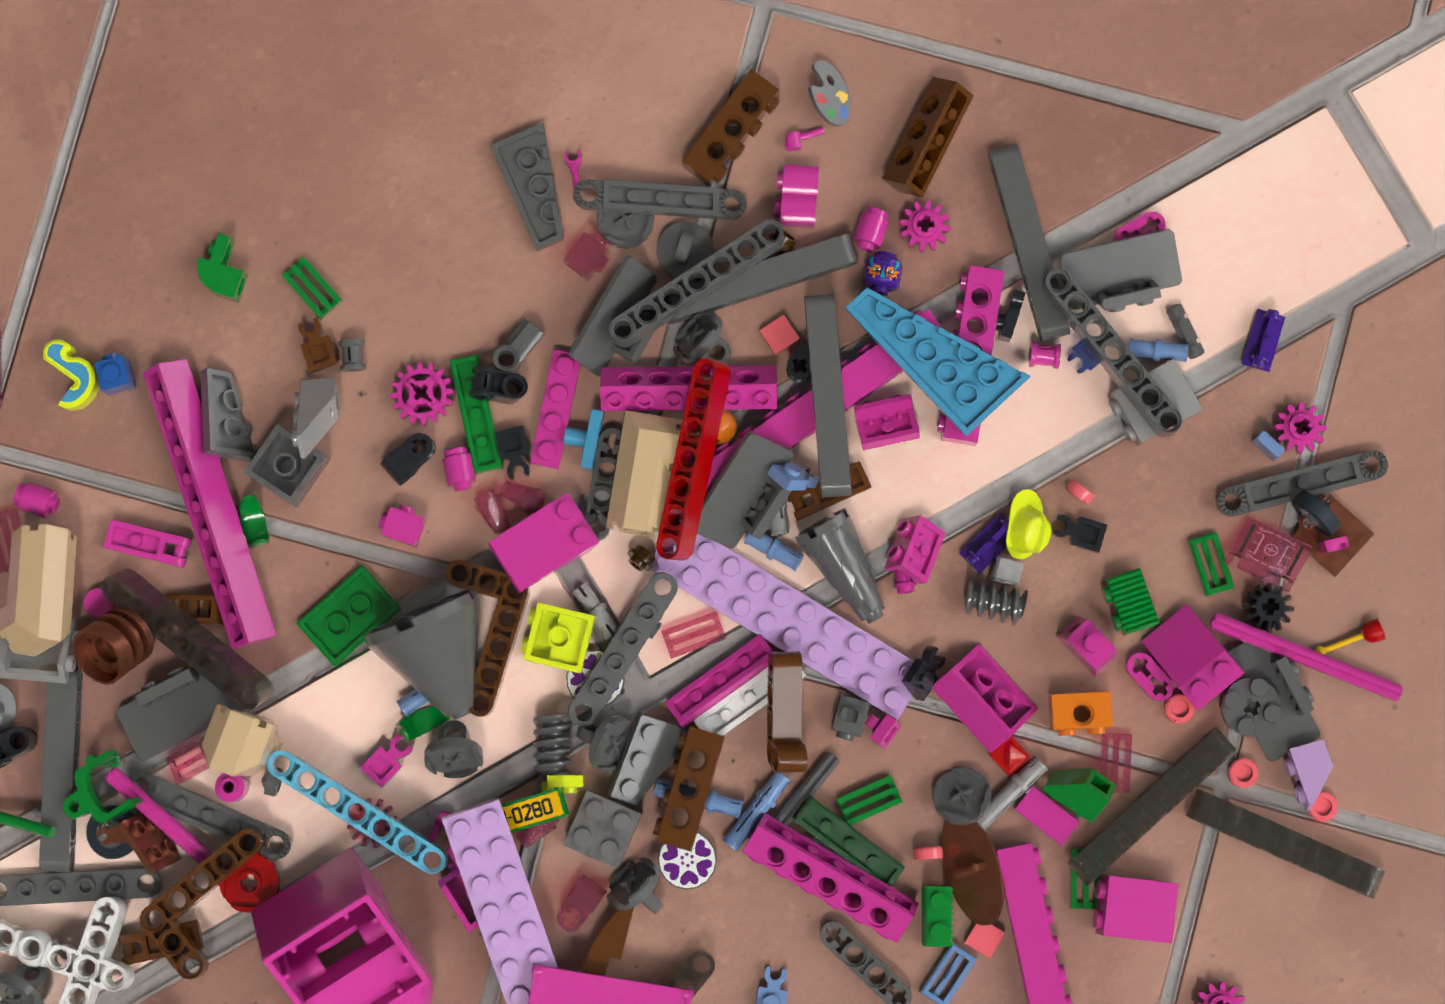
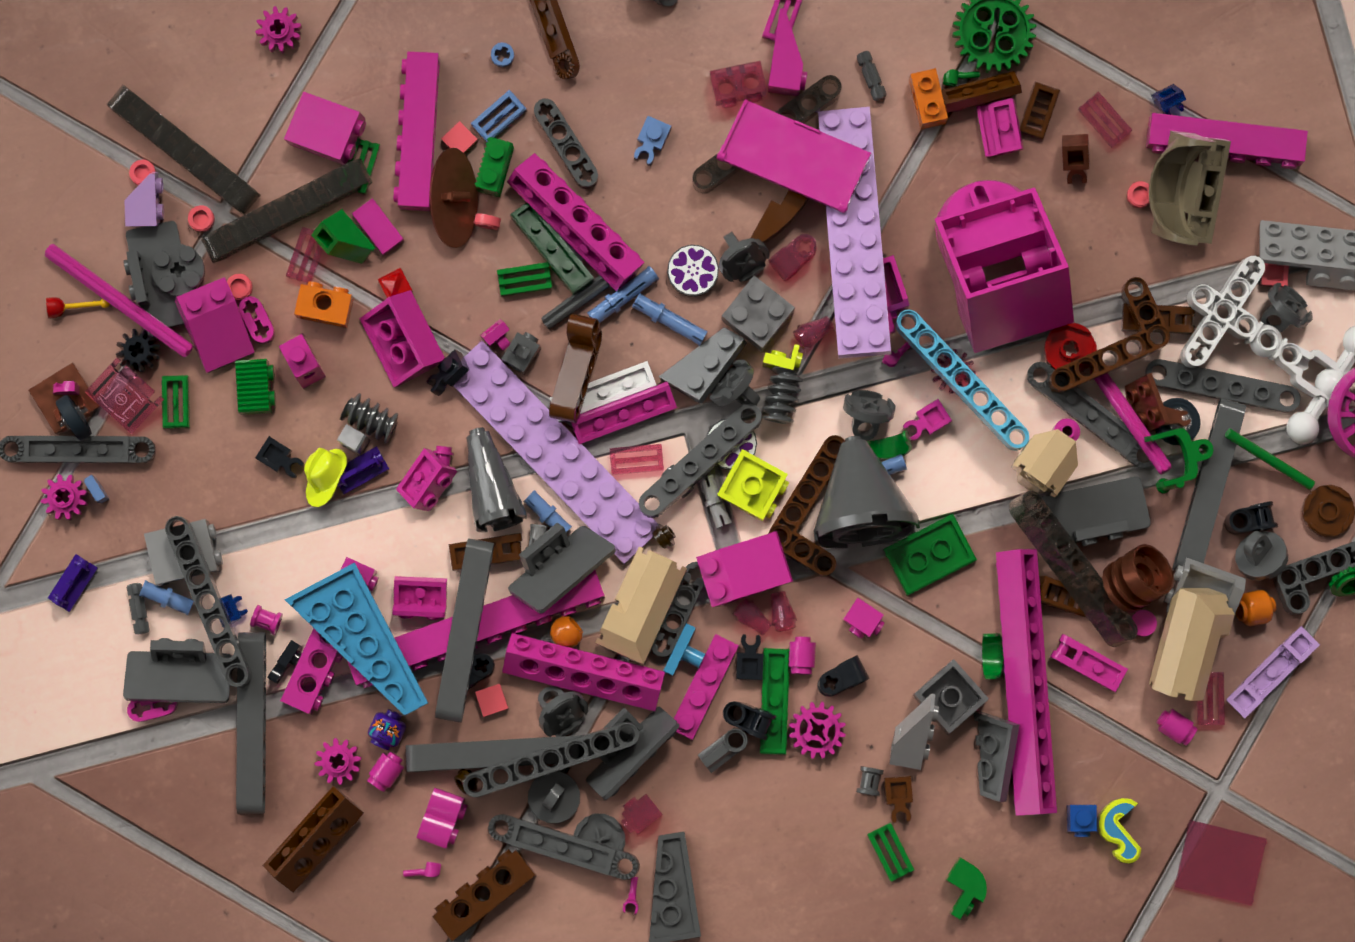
camera: 165 degrees left, 0 degrees up
(193, 773) = (1110, 462): clear pink tile -> none
(271, 783) = (1032, 426): dark grey tile -> none
(535, 809) = (812, 343): tile -> none
(703, 448) = (585, 607): red beam -> none
(710, 746) = (692, 288): reddish brown brick -> none
(793, 477) = (515, 567): medium blue plate -> none
(829, 100) = (388, 896): piece -> none
(961, 796) = (445, 261): dark grey tile -> none
(1015, 788) = (394, 258): light grey pin -> none
(1079, 492) = (270, 492): coral tile -> none

